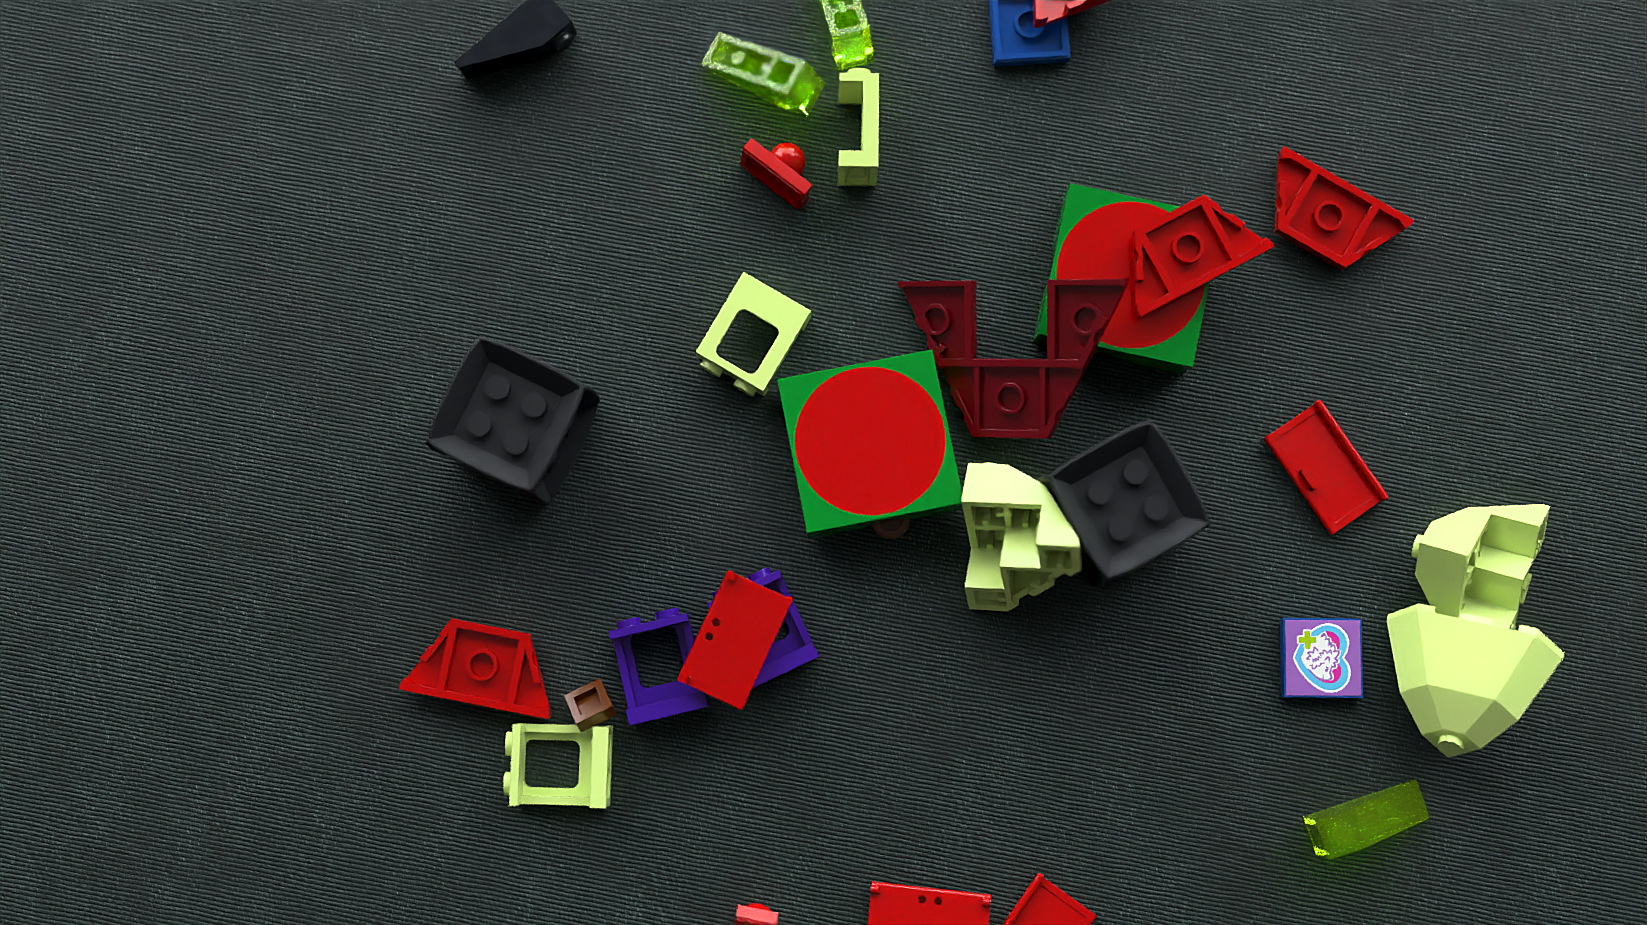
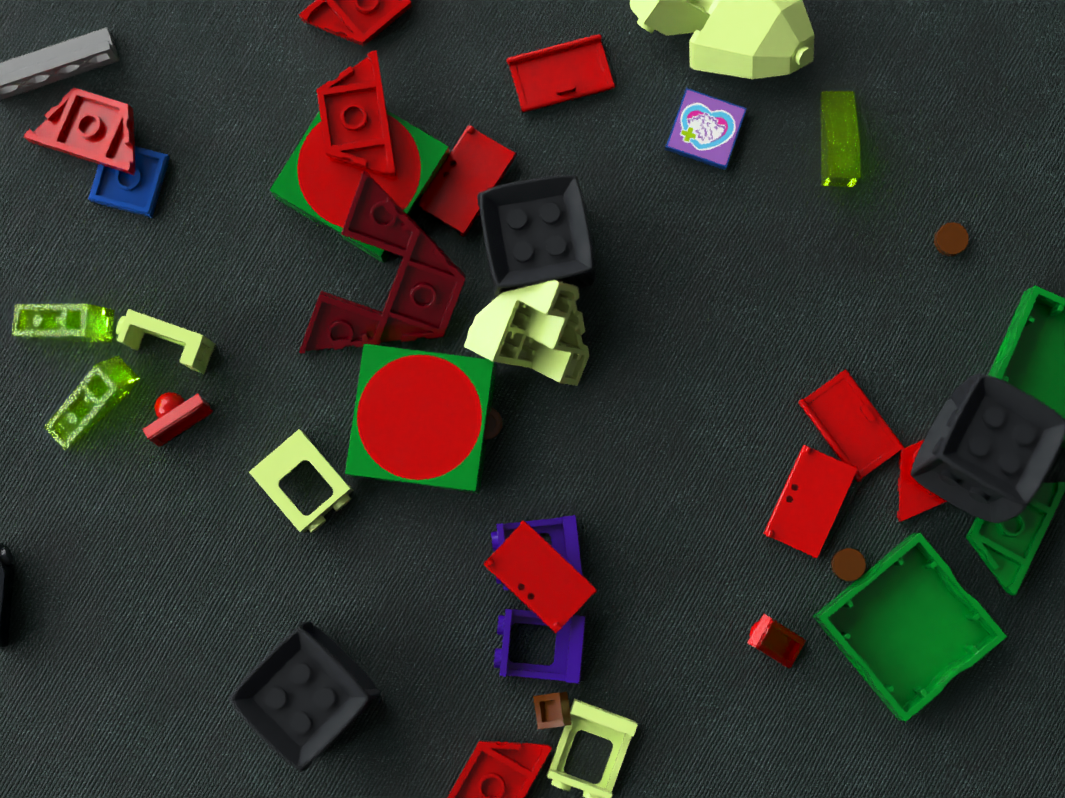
camera: 70 degrees left, 0 degrees up
(1181, 410) = (478, 167): none -> red door

